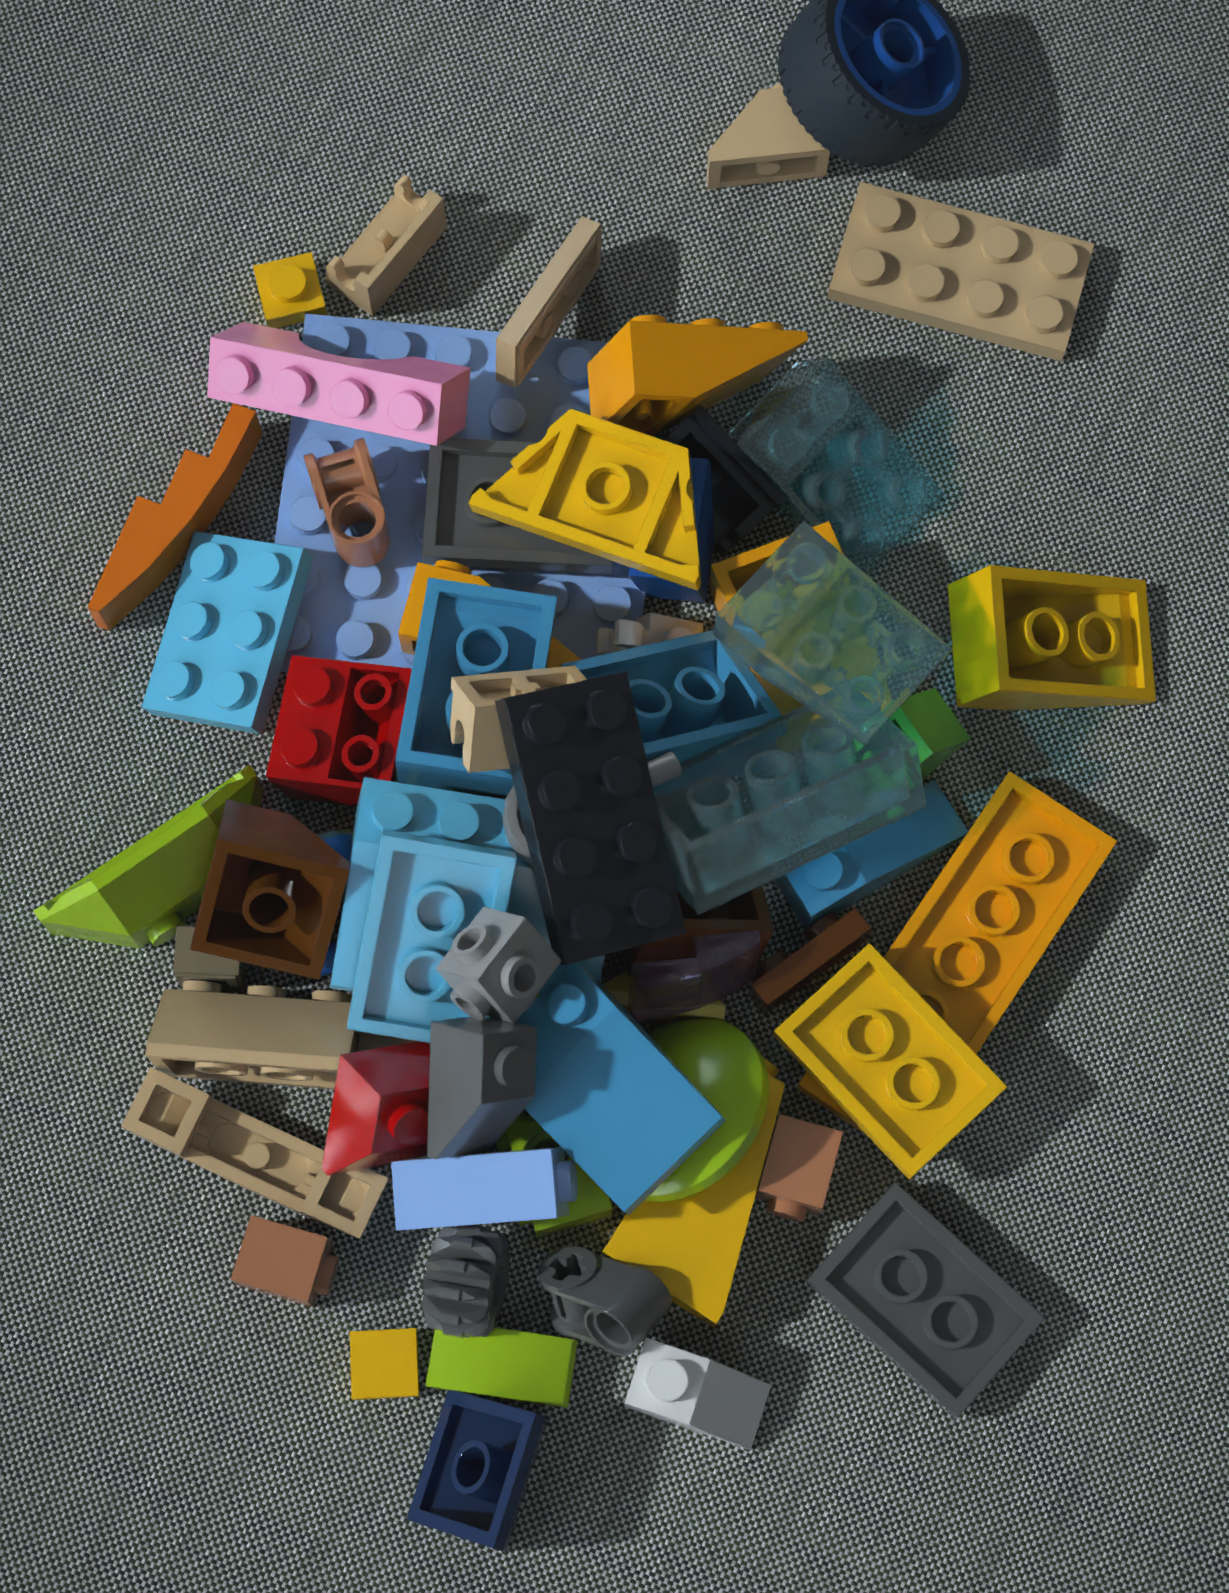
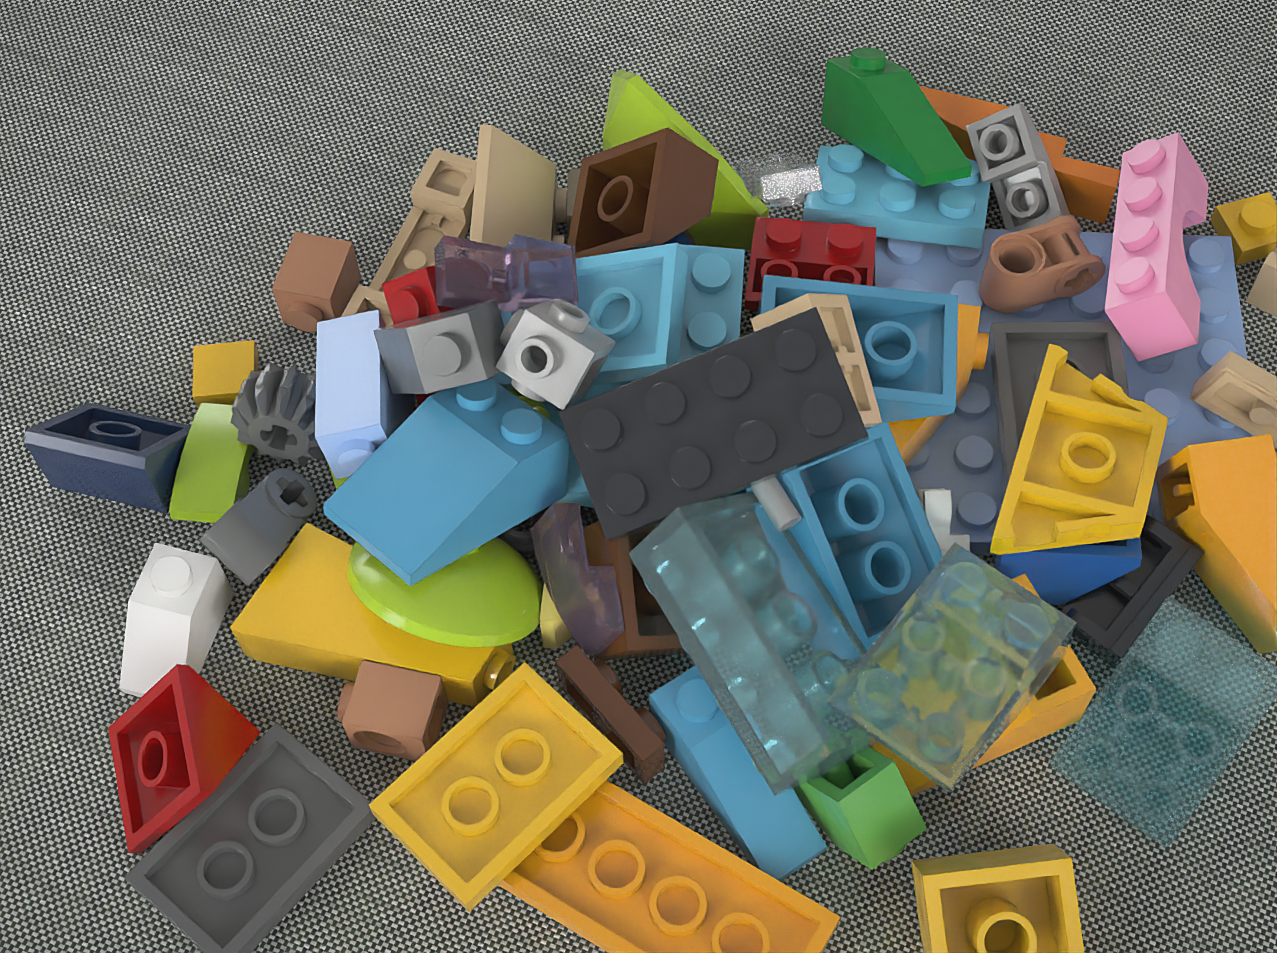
camera: 90 degrees right, 15 degrees down
(144, 624) = (890, 118): none -> green slope
(198, 752) = (780, 178): none -> clear plate
(225, 503) = (1018, 168): none -> light grey slope
(387, 1017) = (515, 275): none -> clear purple slope
(842, 1377) = (173, 752): none -> red slope

